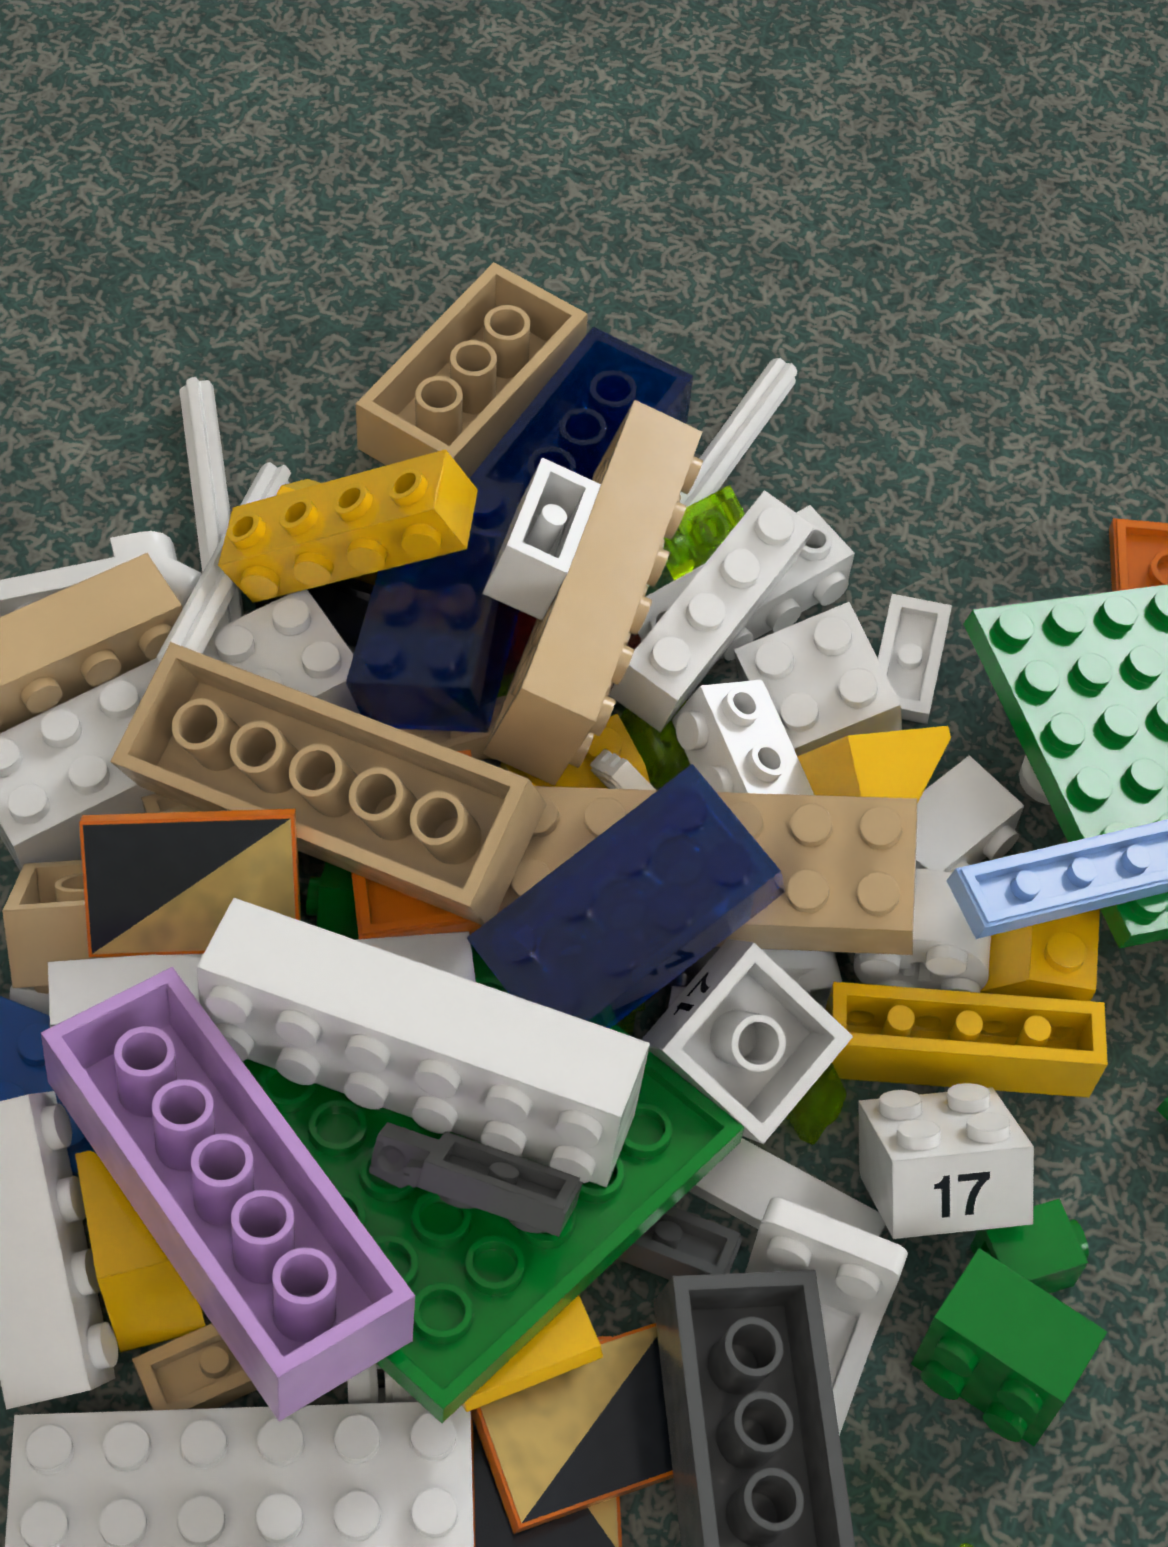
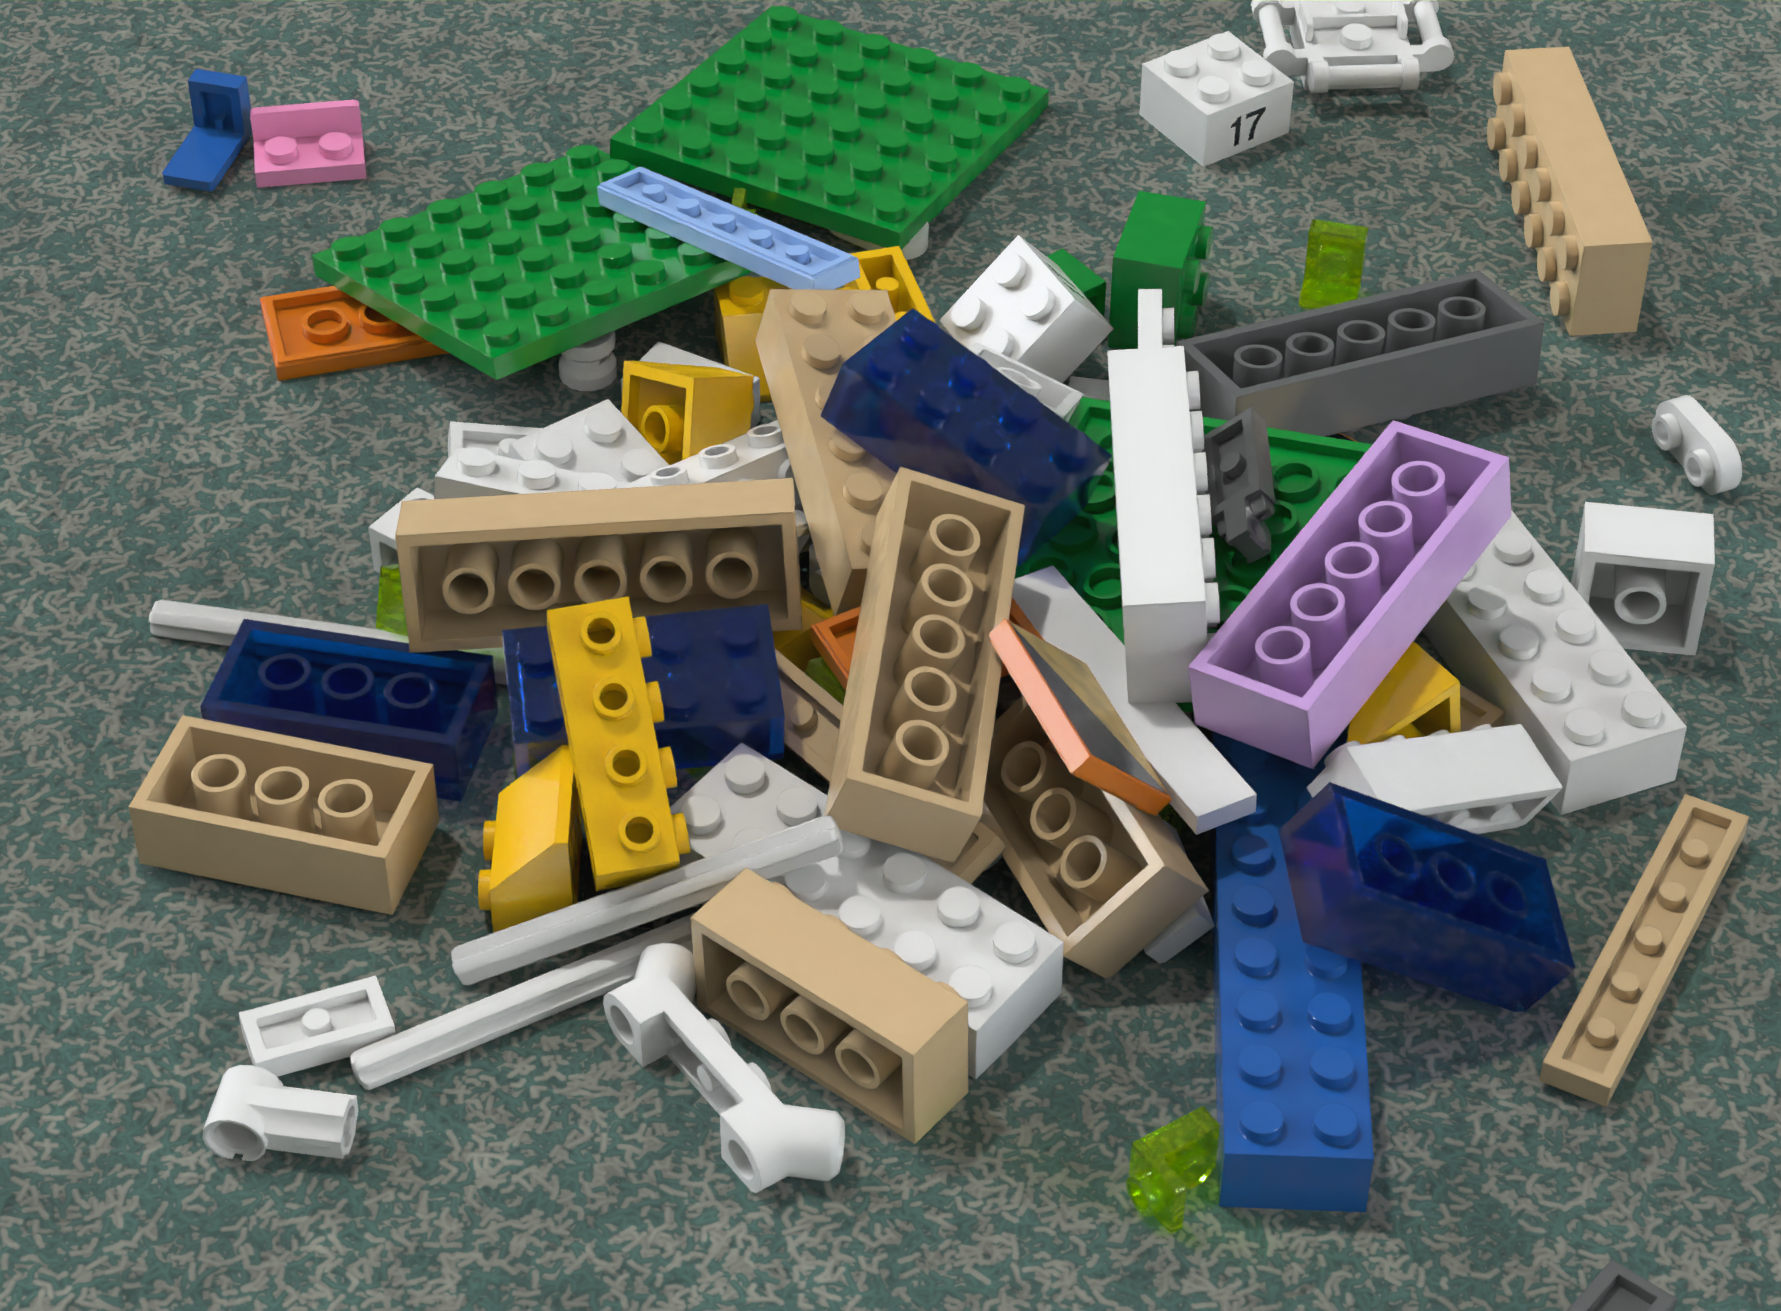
camera: 105 degrees left, 15 degrees down
(172, 318) = (260, 1114): none -> white piece
(248, 369) = (316, 1027): none -> white plate
(542, 539) = (593, 562): white brick -> none

